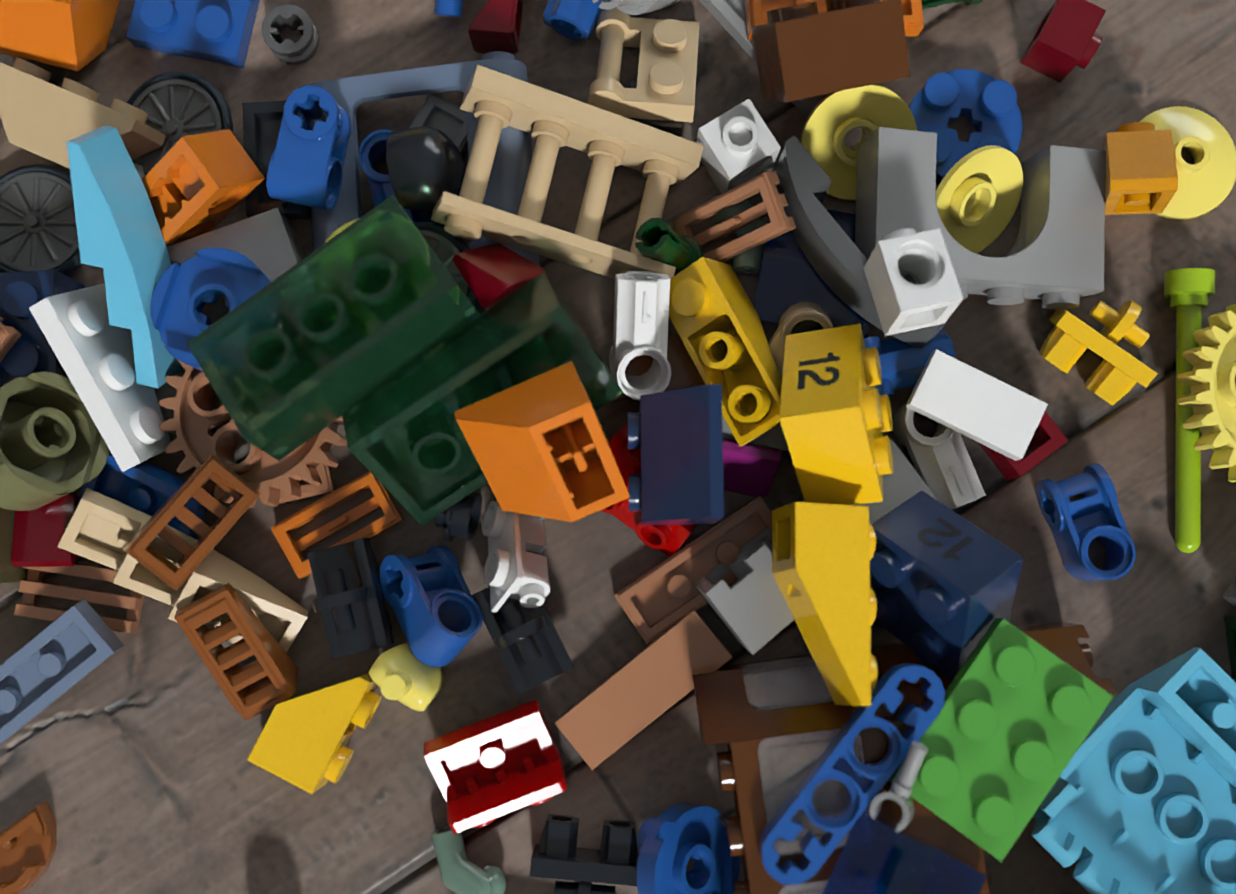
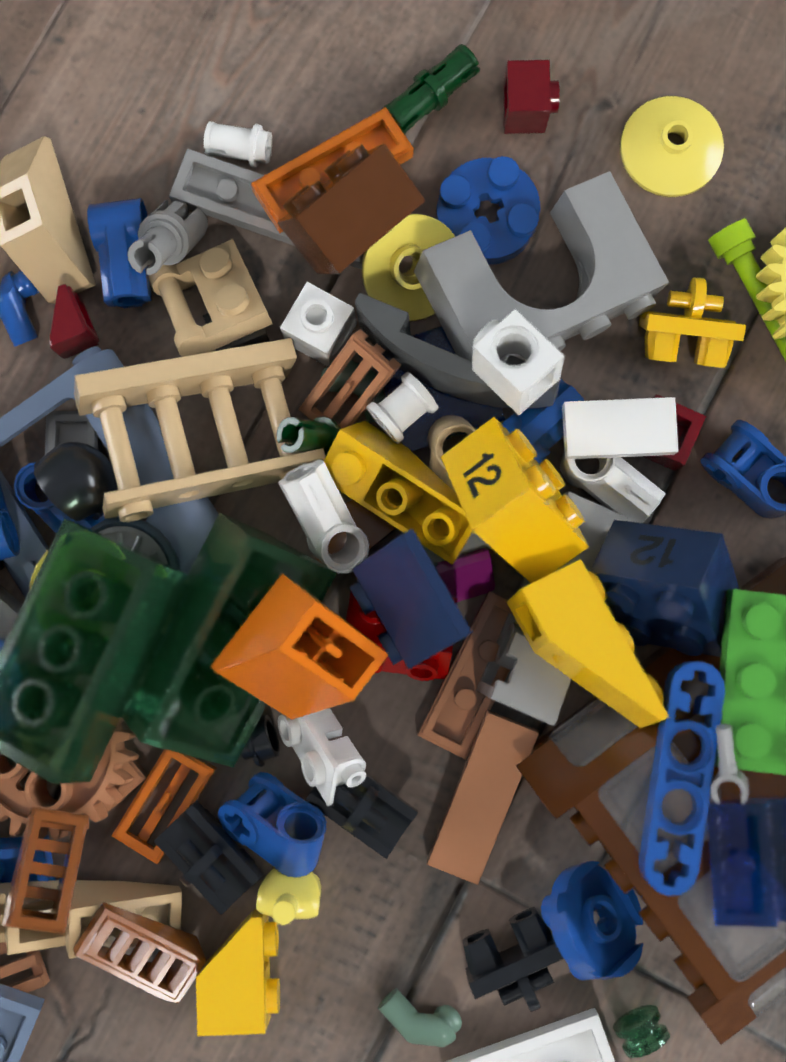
camera: 30 degrees left, 0 degrees up
(495, 272) = (181, 532): dark red slope -> none
(496, 766) = (400, 926): red bracket -> none
(774, 270) = (402, 407): none -> white bush
(980, 196) = (532, 260): light yellow dish -> none
(1139, 169) = (643, 171): light orange slope -> none

